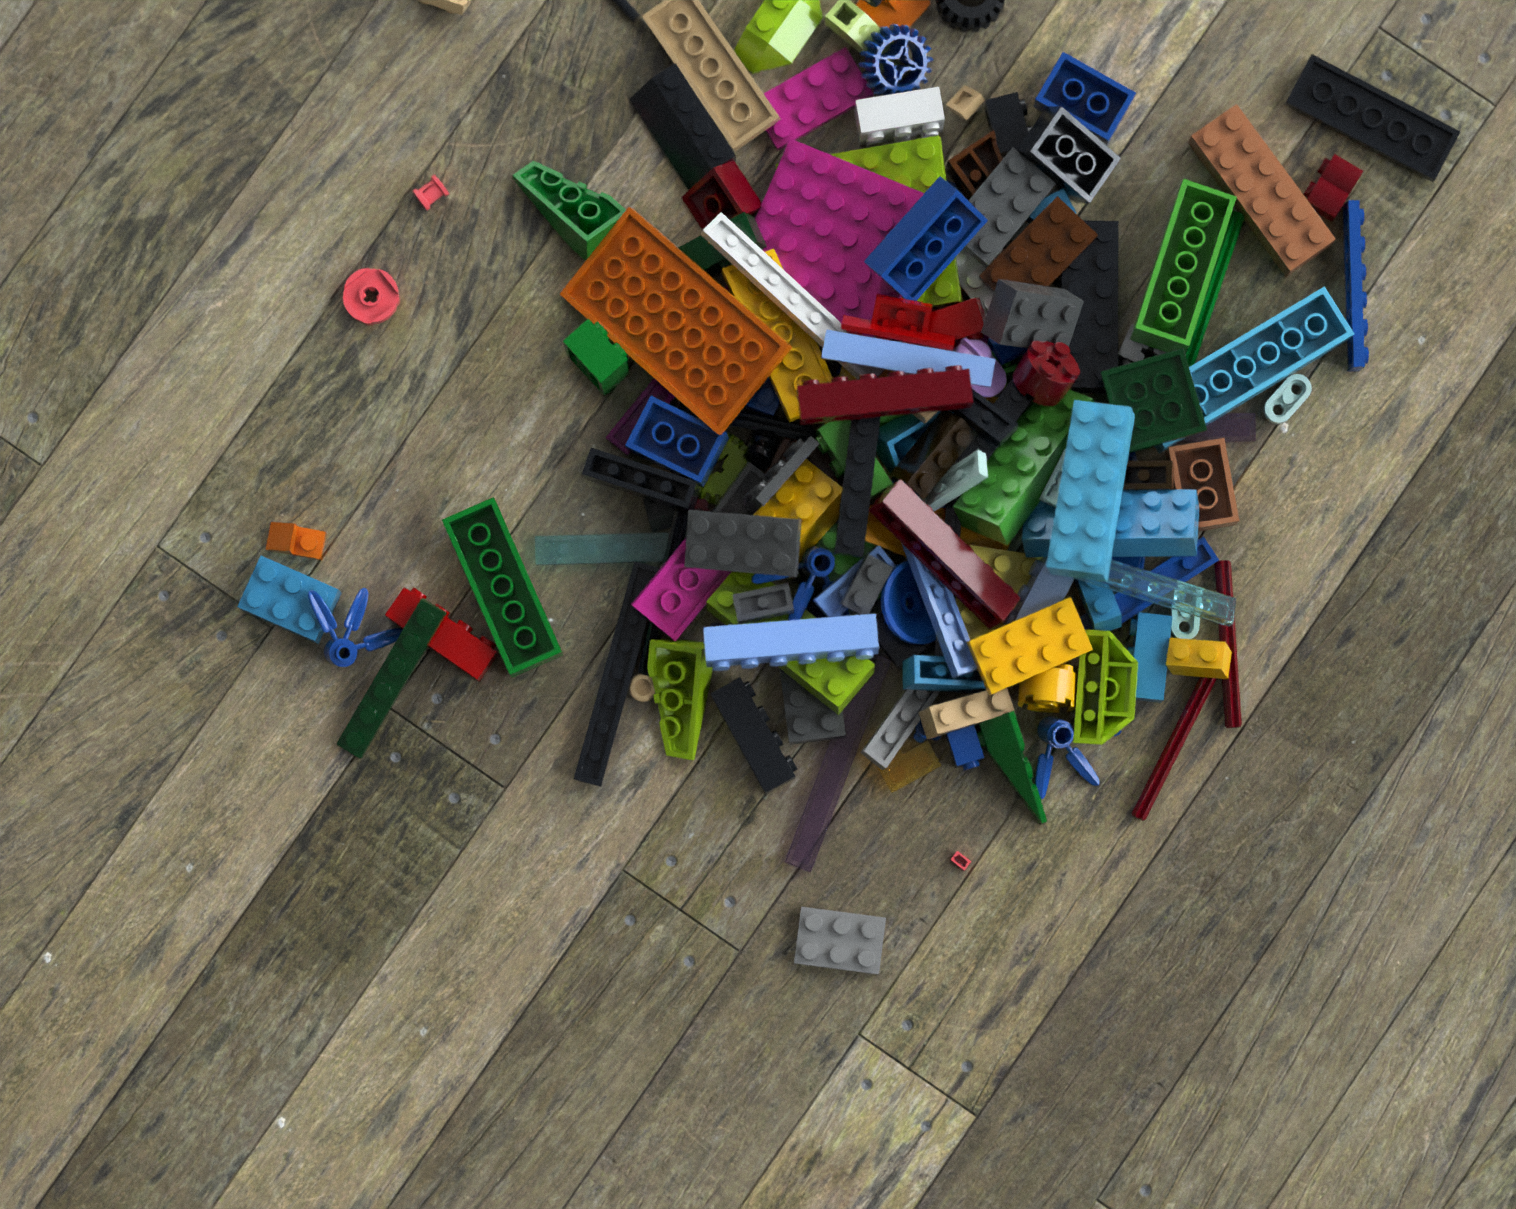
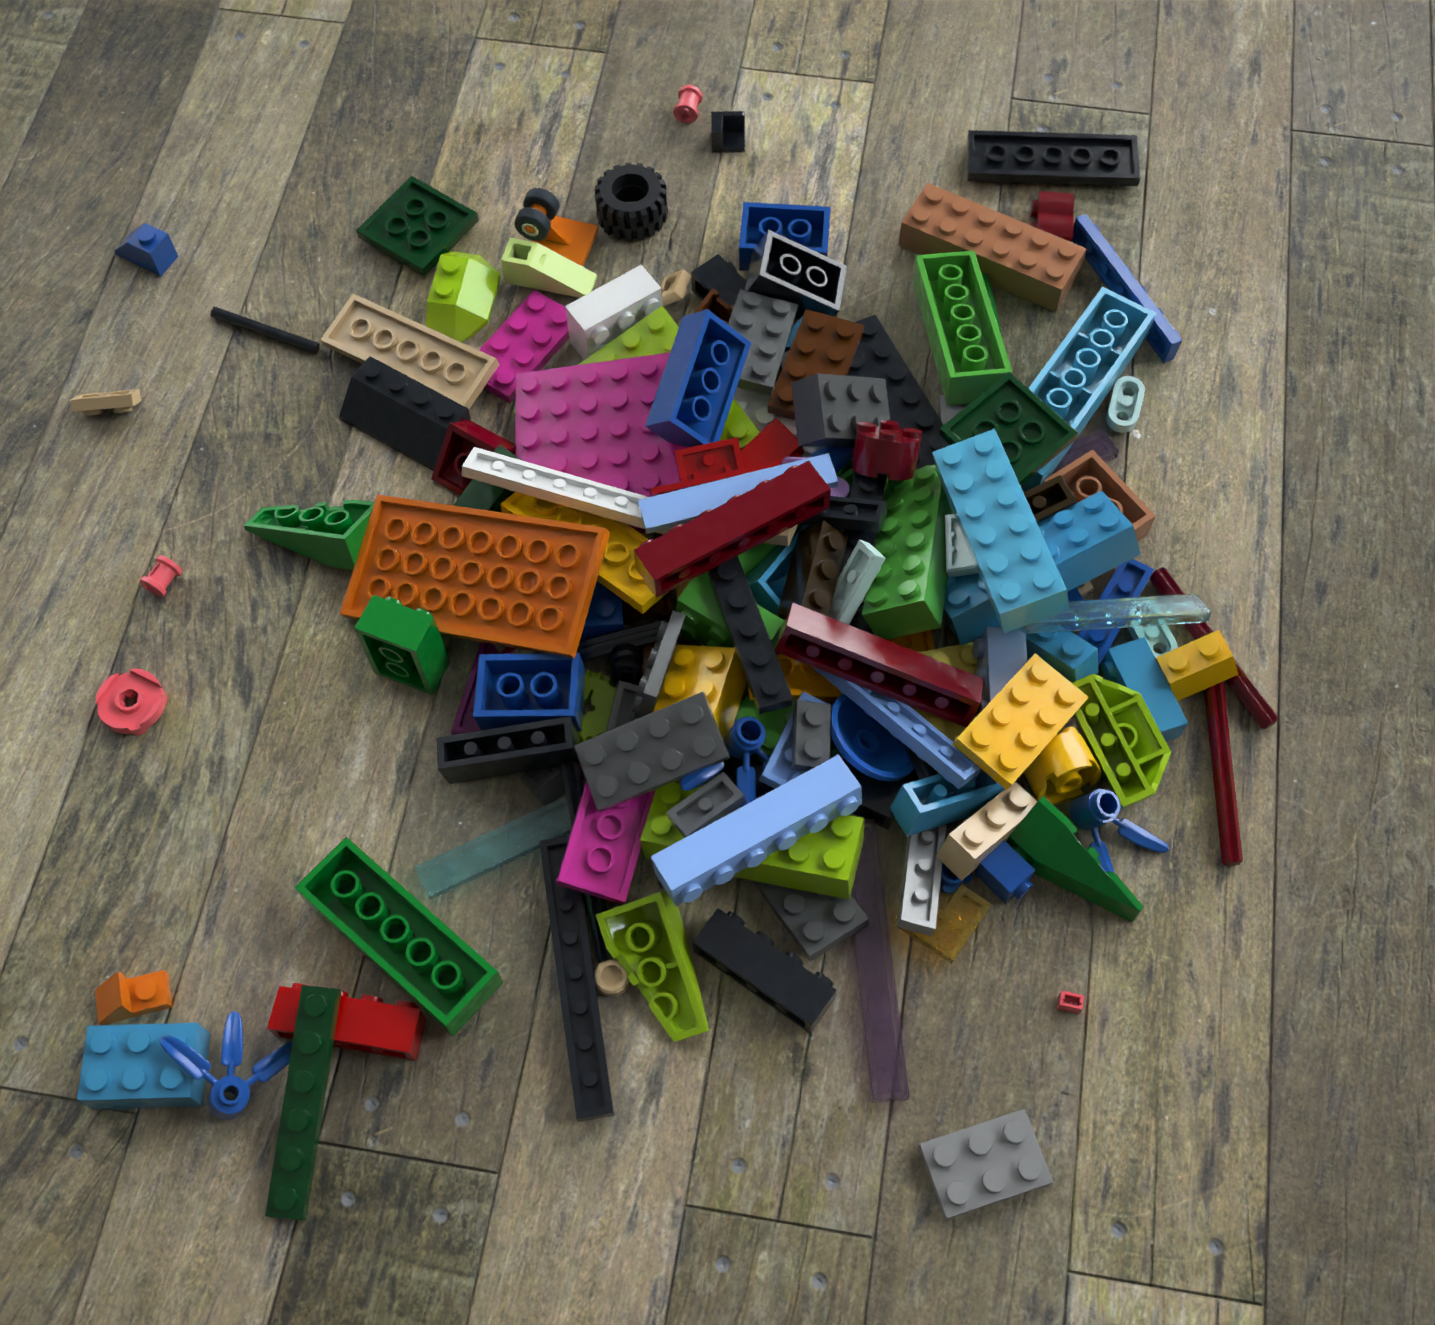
camera: 25 degrees left, 20 degrees down
(918, 67) = (595, 268): blue gear -> none

